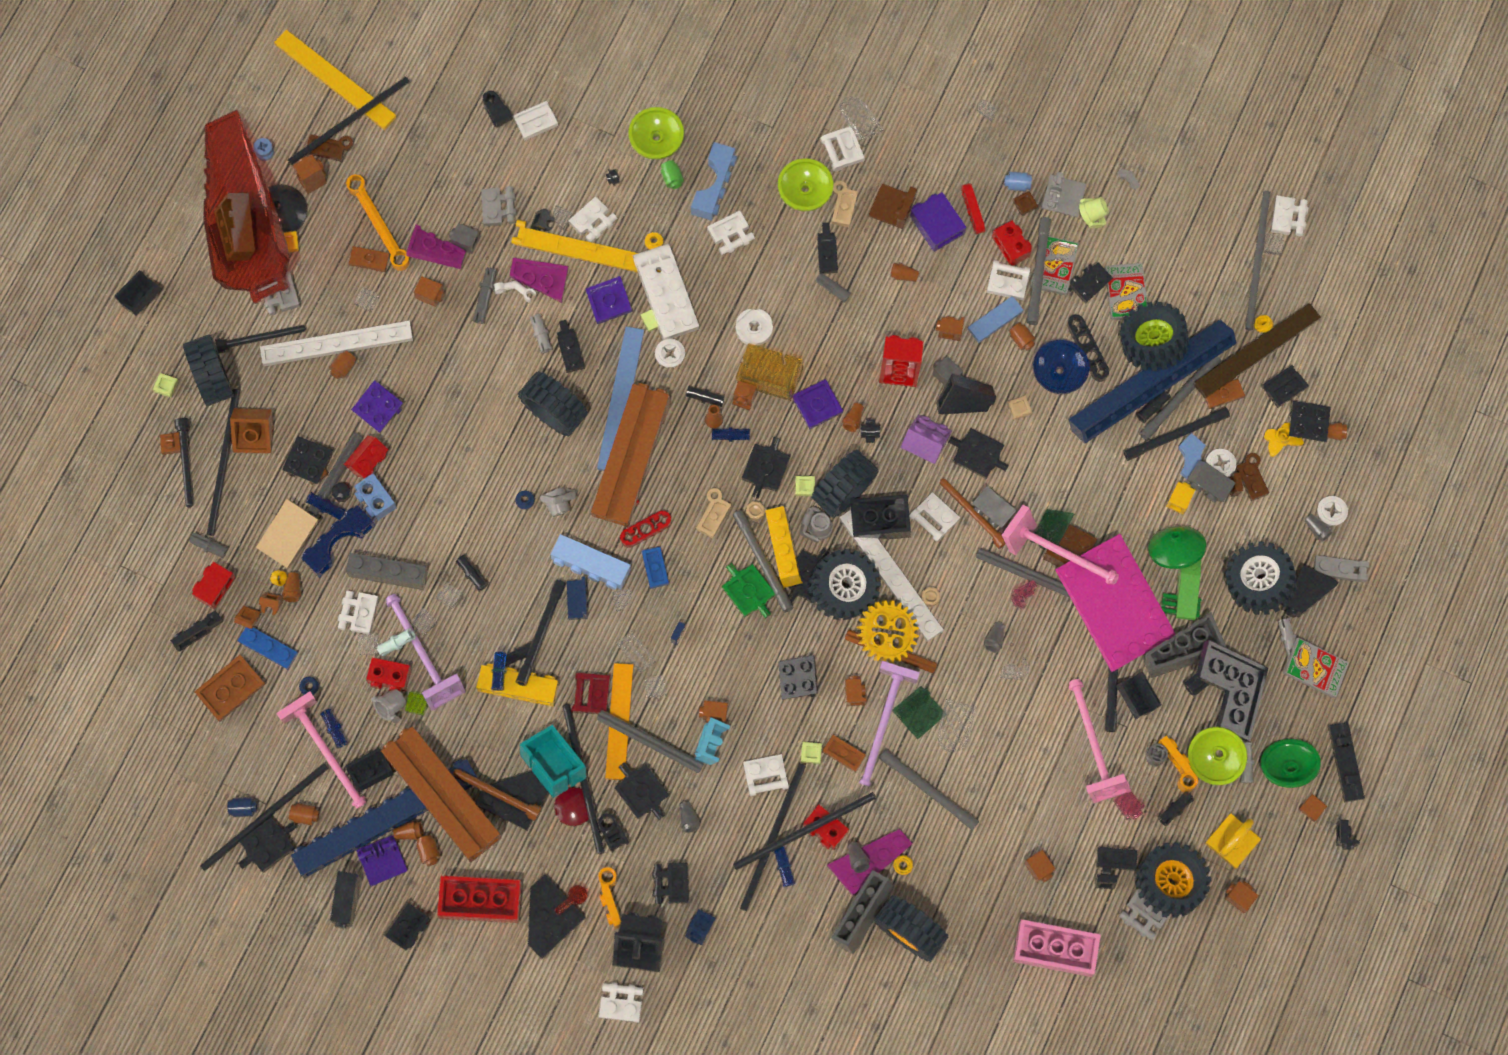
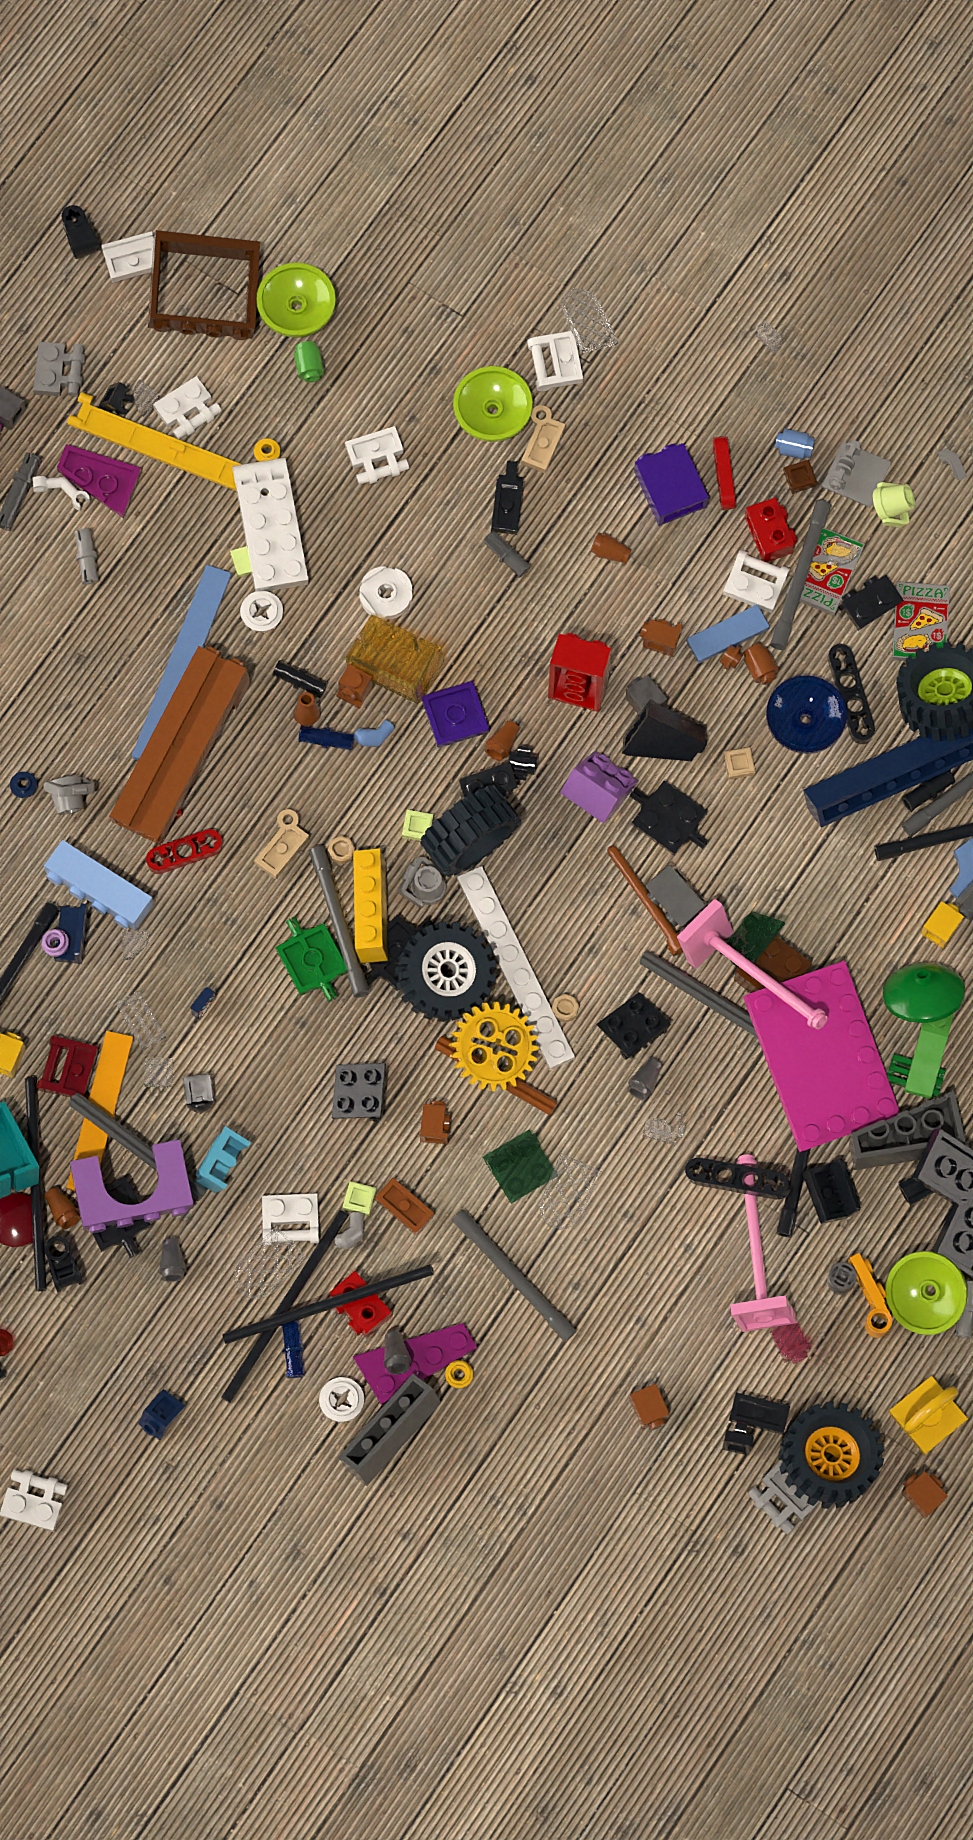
camera: 10 degrees right, 0 degrees up
(552, 403) = (83, 656): black wheel -> none
(567, 601) = (51, 936): none -> lavender plate
(569, 348) = (123, 583): black hinge -> none
(585, 105) = (211, 247): none -> reddish brown window
(605, 794) = (62, 1209): none -> dark orange cone
(607, 899) = (39, 1352): light orange plate -> none
(609, 300) = (189, 524): dark purple plate -> none
(612, 177) = (225, 352): black plate -> none
(632, 789) = (101, 1210): none -> medium lavender arch
(638, 943) = (71, 1421): black piece -> none
(655, 567) = (187, 907): blue plate -> none
(677, 883) = (140, 1347): black plate -> none
(686, 696) = (199, 1092): none -> plate
(706, 201) = (350, 407): medium blue arch -> none
(713, 710) = (234, 1118): dark orange brick -> none
(742, 806) = (289, 1271): none -> clear window
(765, 428) = (372, 737): none -> medium blue arm
(766, 467) = (367, 792): black plate -> none
(811, 779) = (353, 1234): none -> light grey arm
(833, 894) = (340, 1386): none -> white gear
(841, 450) = (500, 776): none -> black bracket
(881, 517) = (514, 886): black slope -> none
(893, 205) = (612, 451): reddish brown bracket -> none
(898, 675) = (498, 1109): lavender tile -> none
(911, 928) = (450, 1462): black wheel -> none
(939, 513) = (599, 894): white plate -> none
(980, 601) = (634, 1025): none -> black hinge
(1001, 335) = (731, 657): none -> dark orange plate
(1025, 591) = (698, 1020): clear pink bracket -> none
(1056, 948) = (650, 1523): bright pink brick -> none
(1073, 693) = (736, 1183): none -> black beam
(1175, 808) = (855, 1357): black pin -> none

